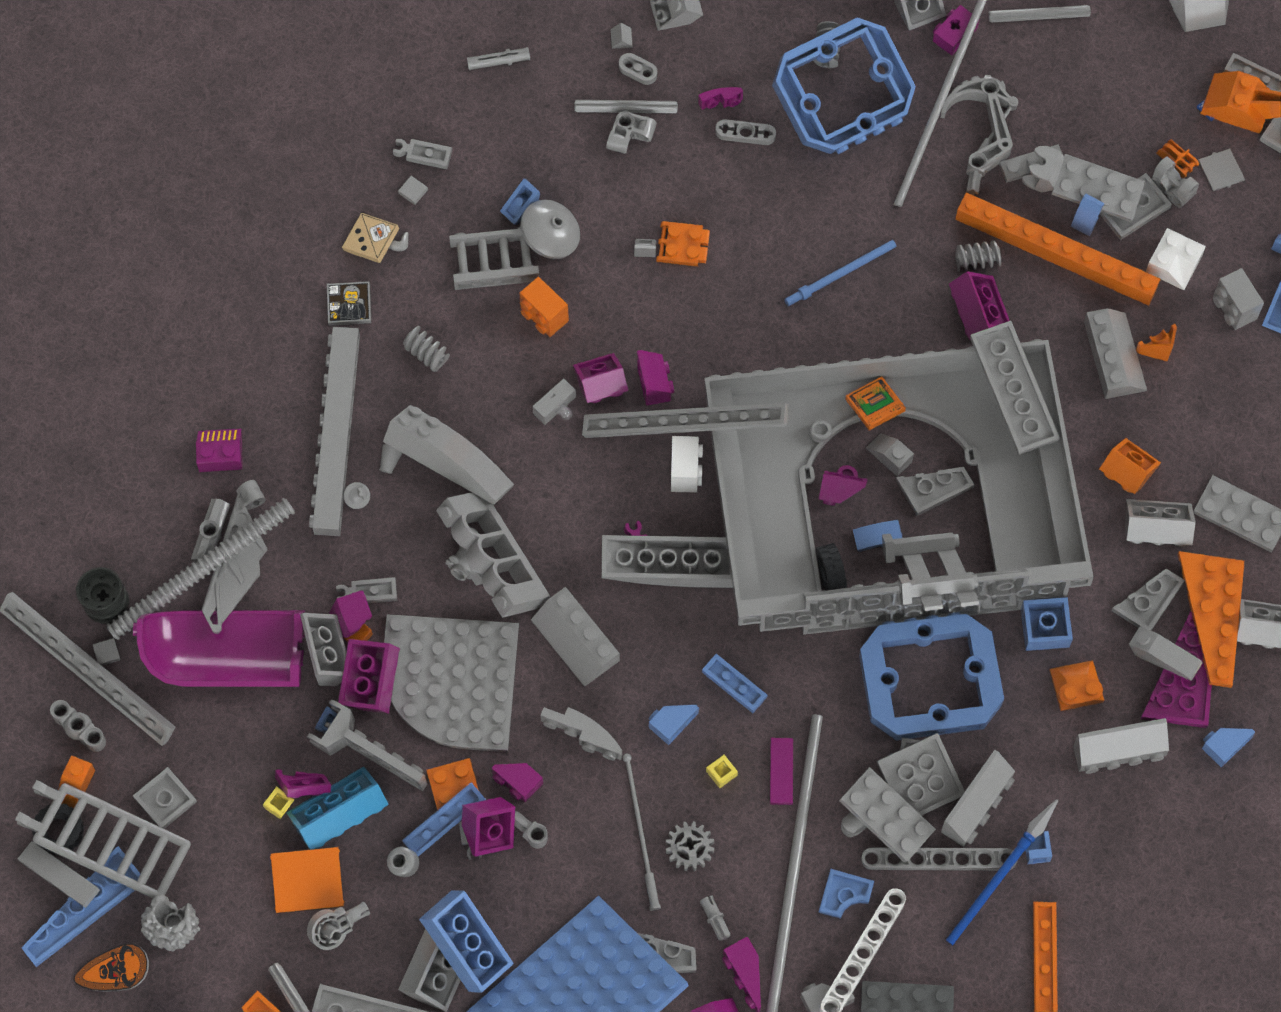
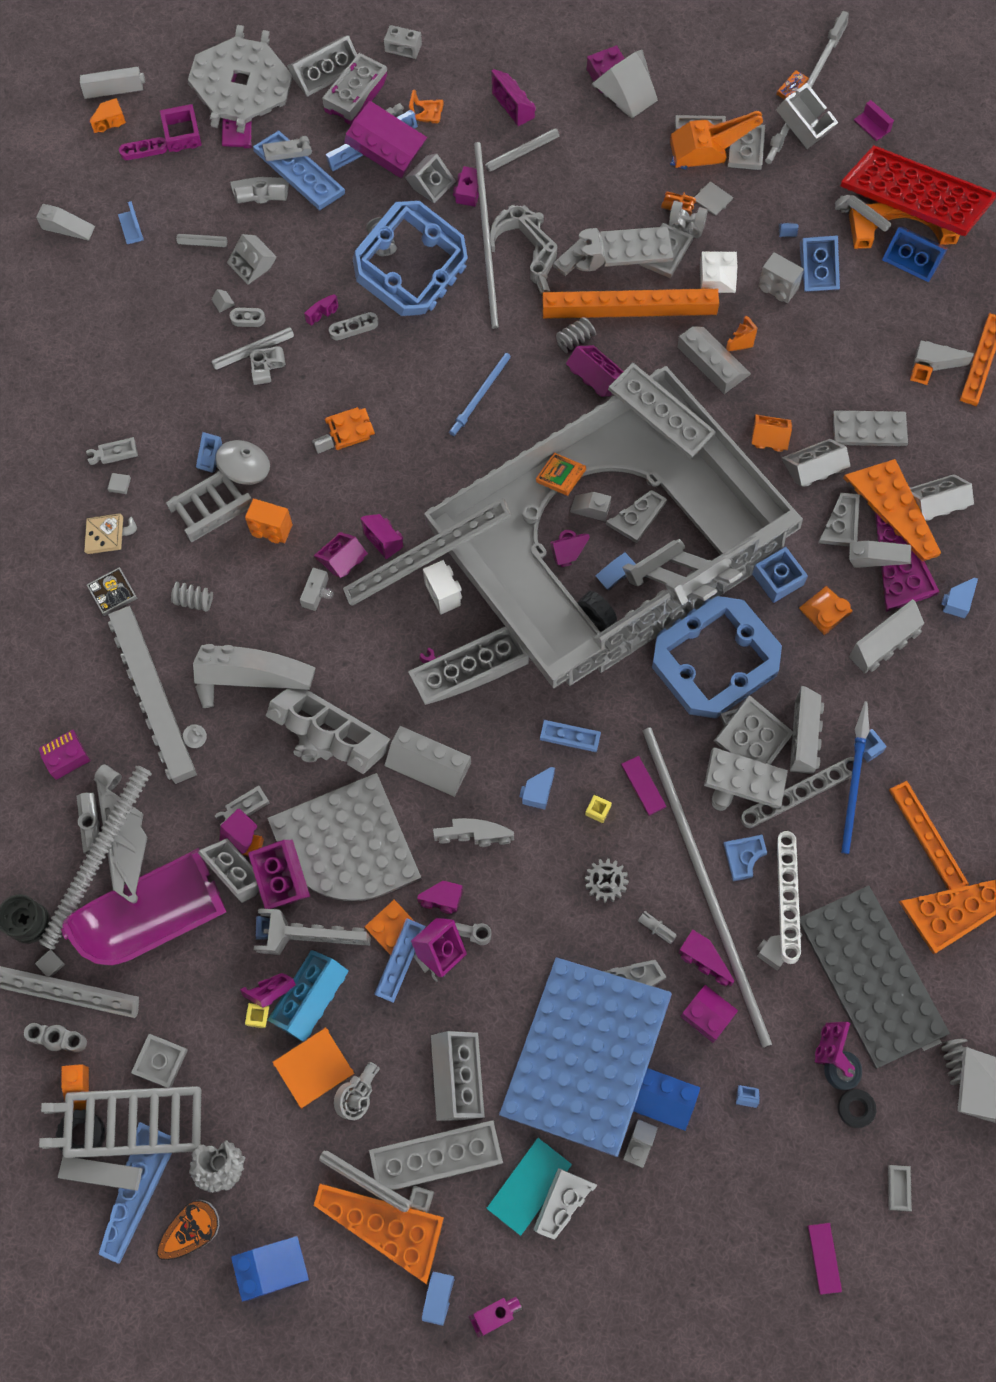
camera: 25 degrees left, 0 degrees up
(396, 859) = (382, 1018): light grey head -> none
(466, 941) = (473, 1051): medium blue brick -> none
(494, 59) = (137, 356): light grey pin -> none
(649, 876) = (586, 920): light grey piece -> none
(1087, 214) = (639, 269): medium blue slope -> none

